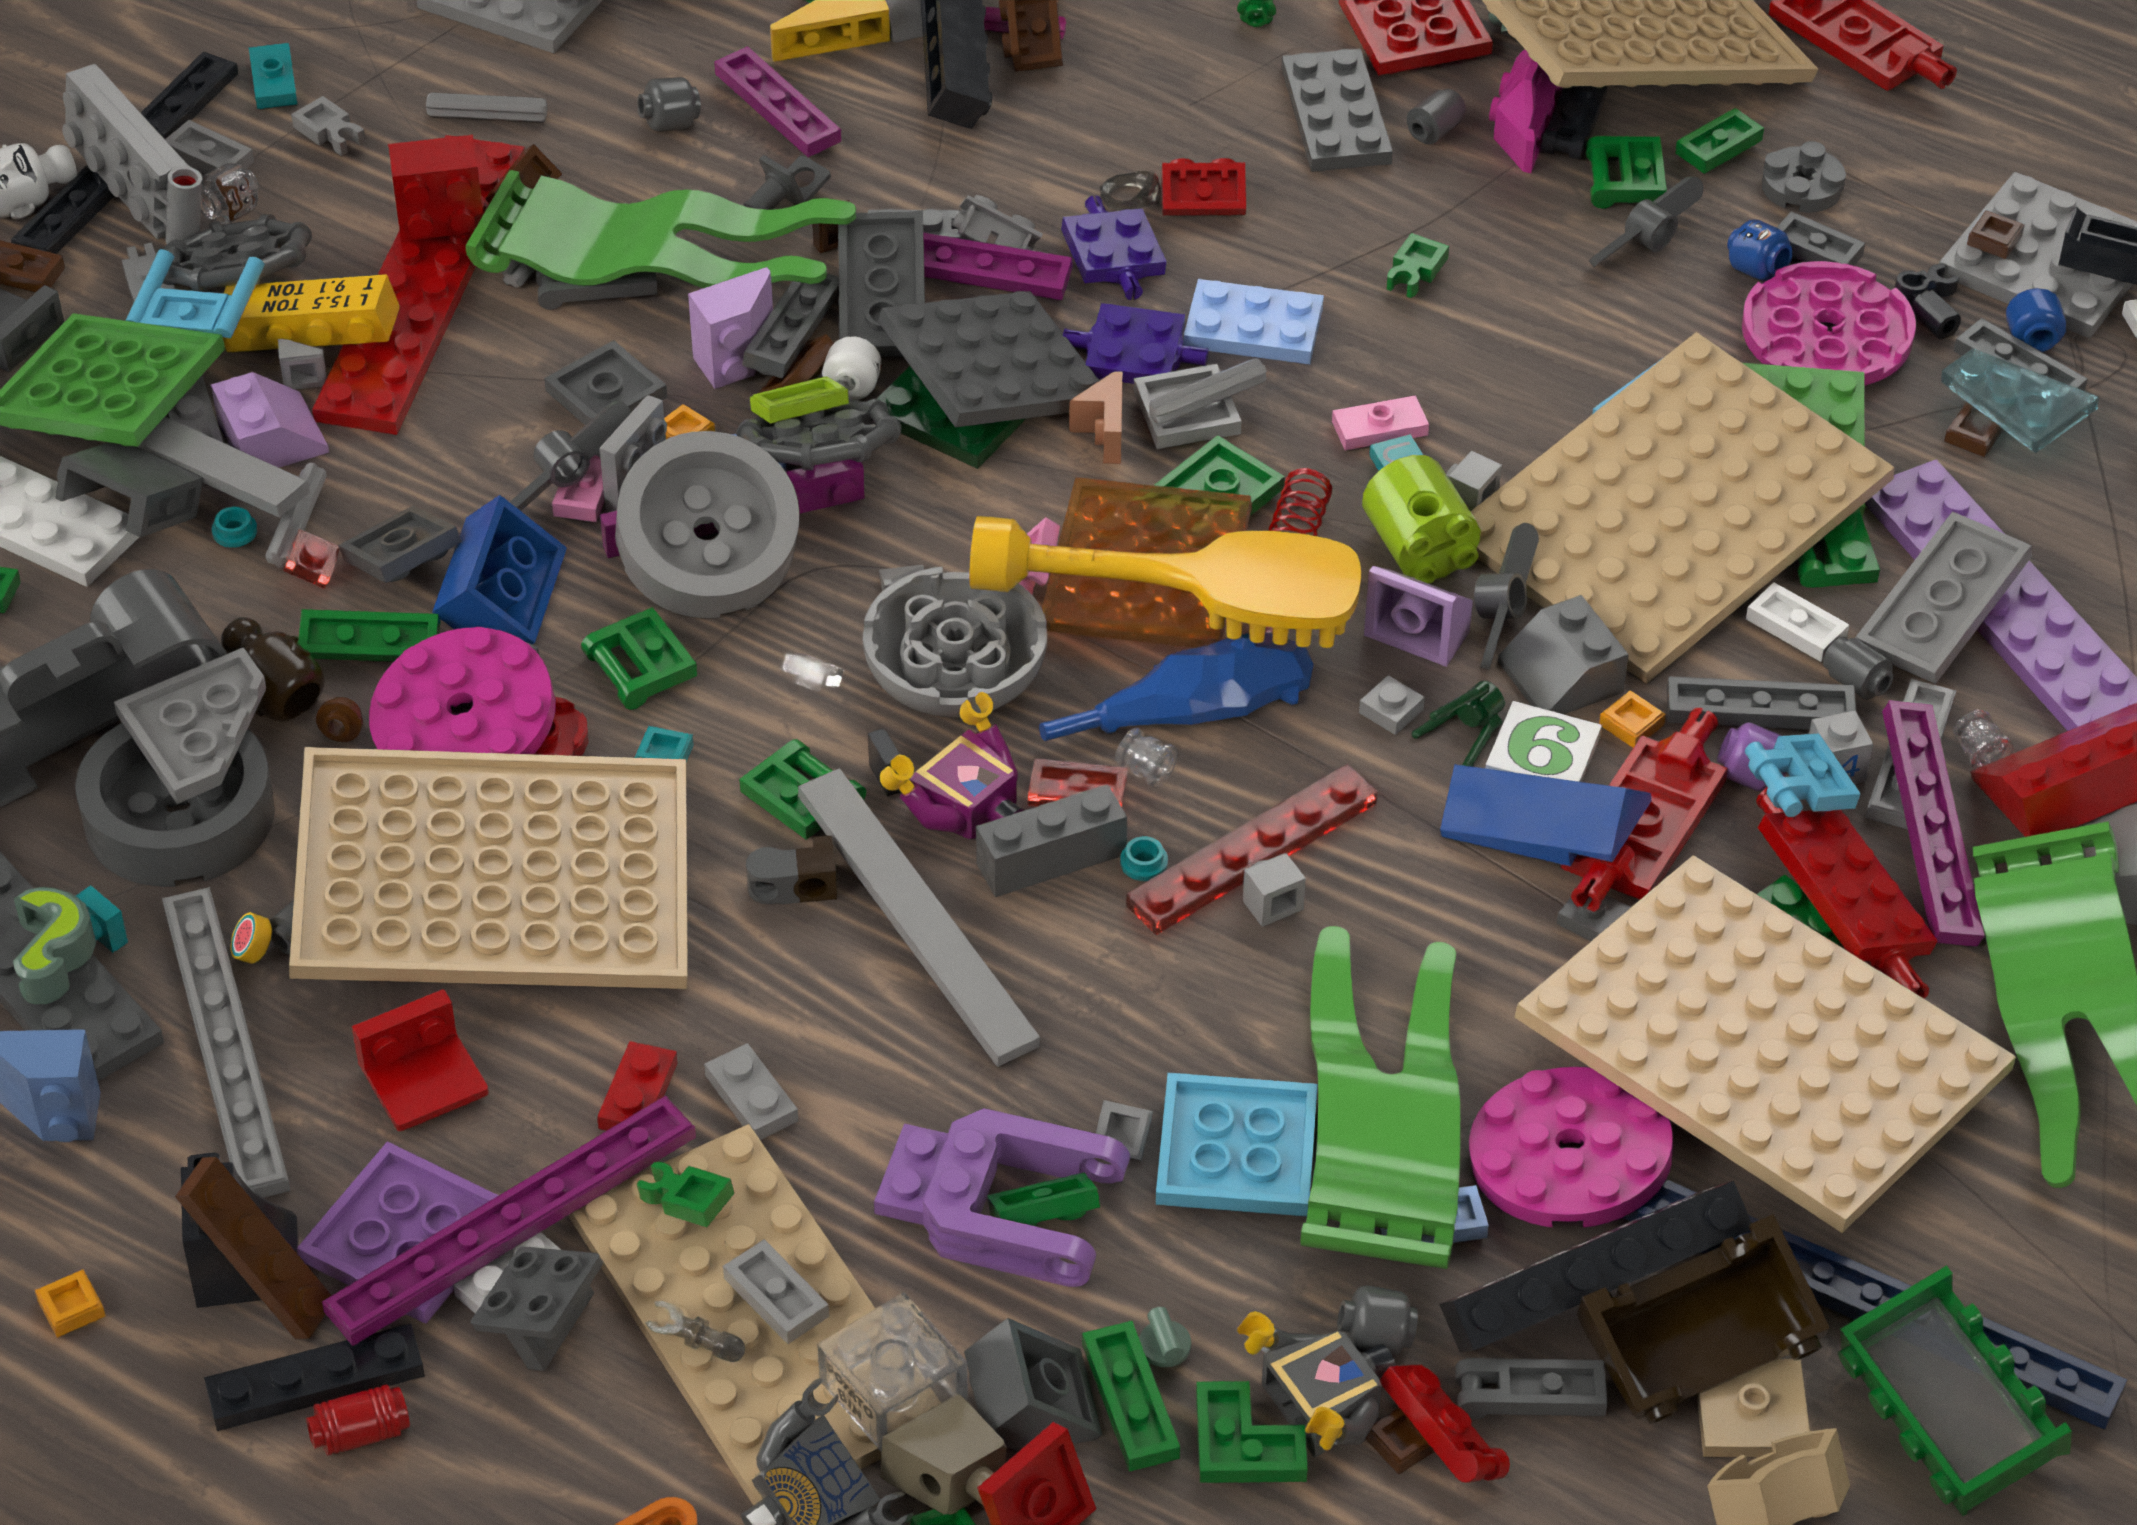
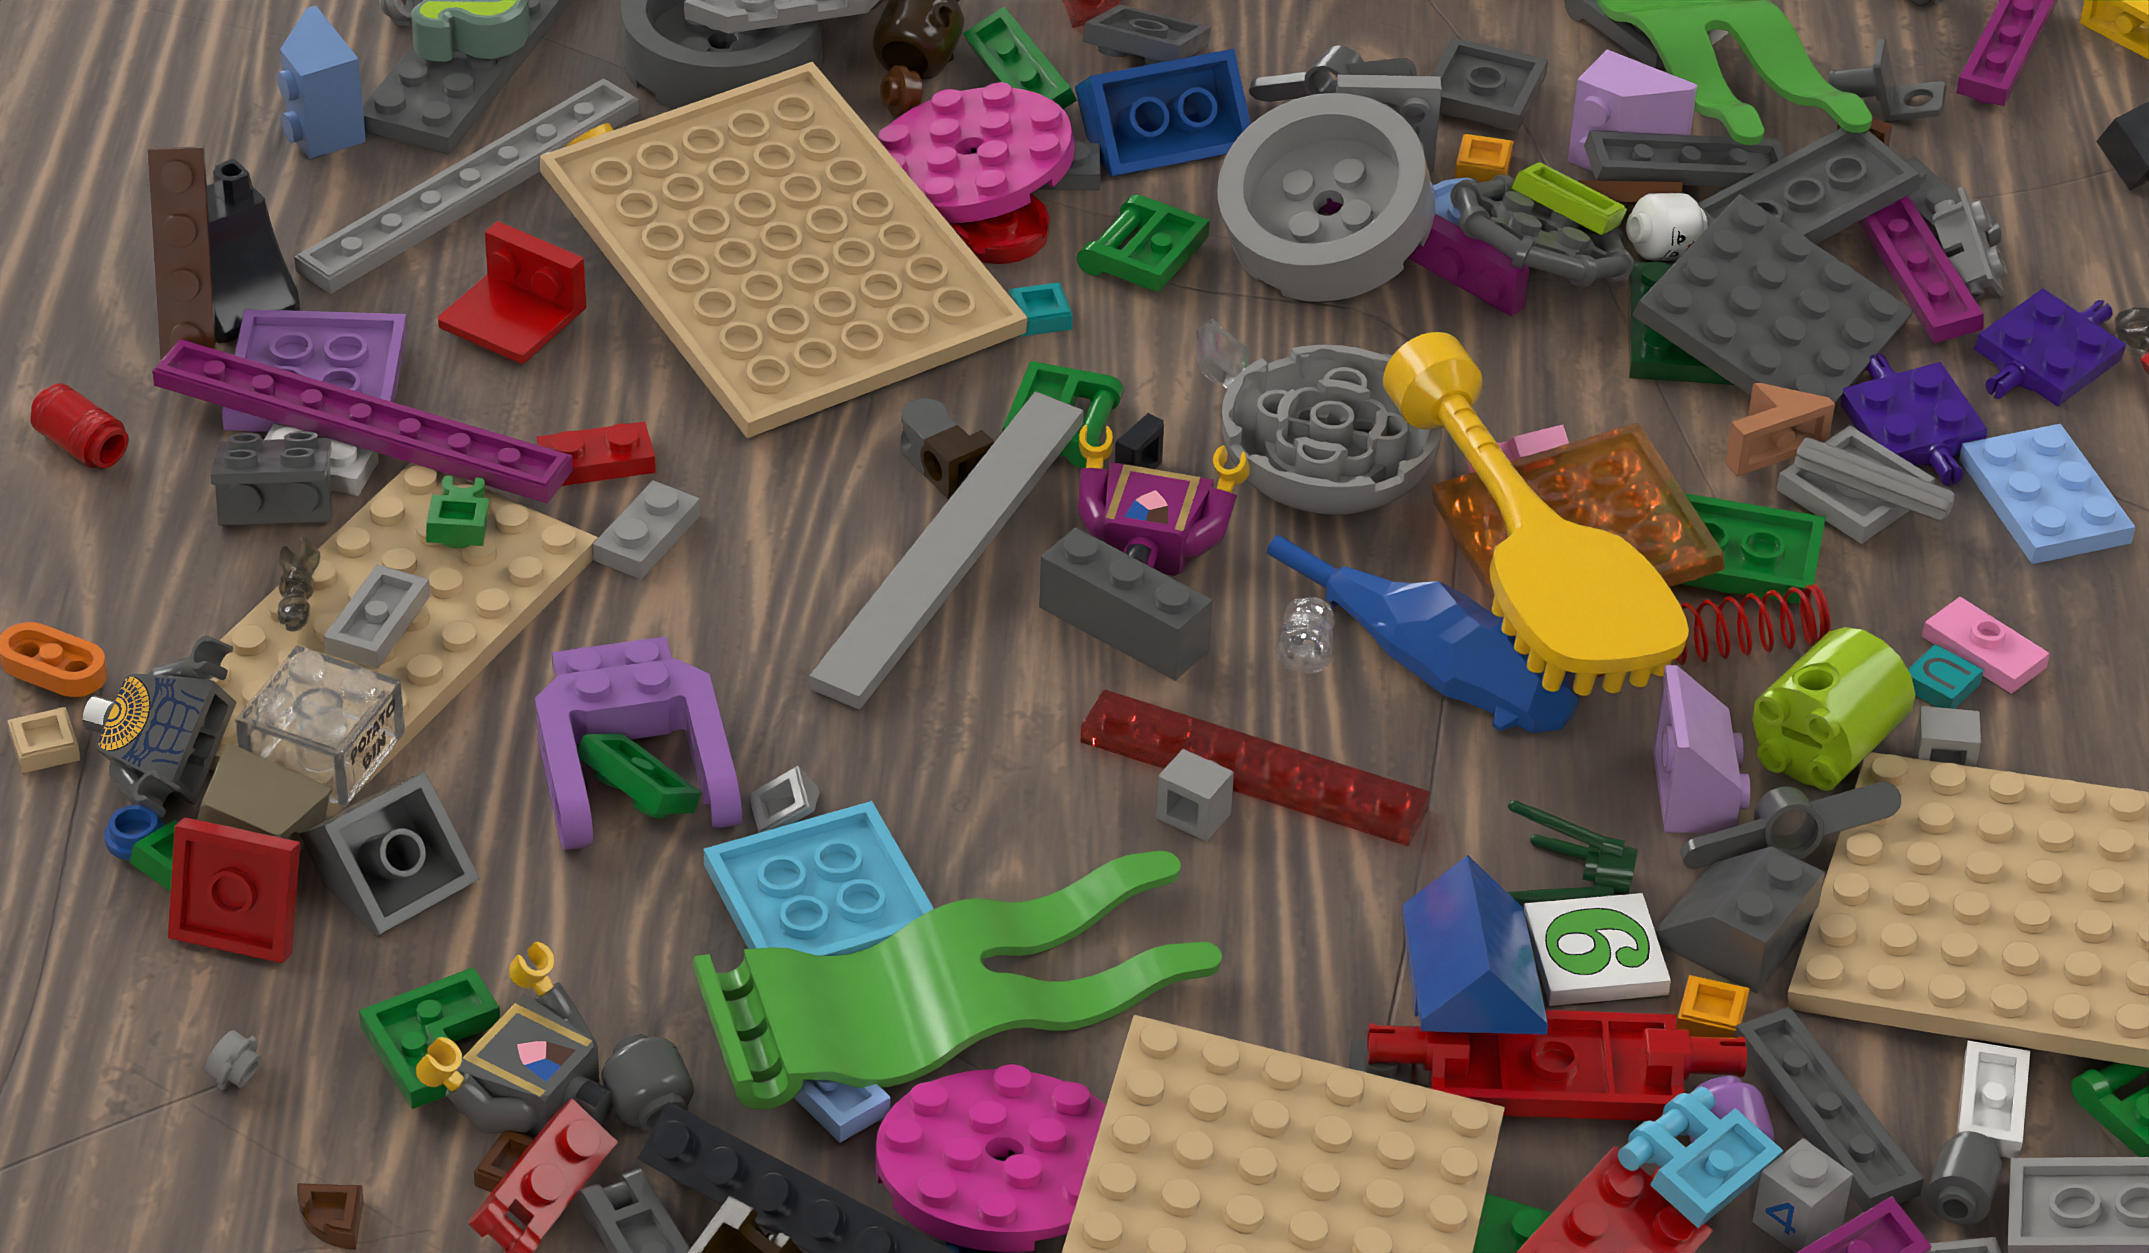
camera: 60 degrees right, 5 degrees down
(70, 1303) = (112, 216): light orange tile -> none
(105, 919) = (546, 51): teal plate -> none
(313, 1377) = (120, 388): black plate -> none
(1061, 779) = (1236, 609): clear red plate -> none
(1130, 1396) = (432, 930): green plate -> none
(1143, 858) = (1166, 685): teal plate -> none
(1164, 1340) = (520, 929): sand green plate -> none
(1391, 705) = (1560, 796): light grey plate -> none

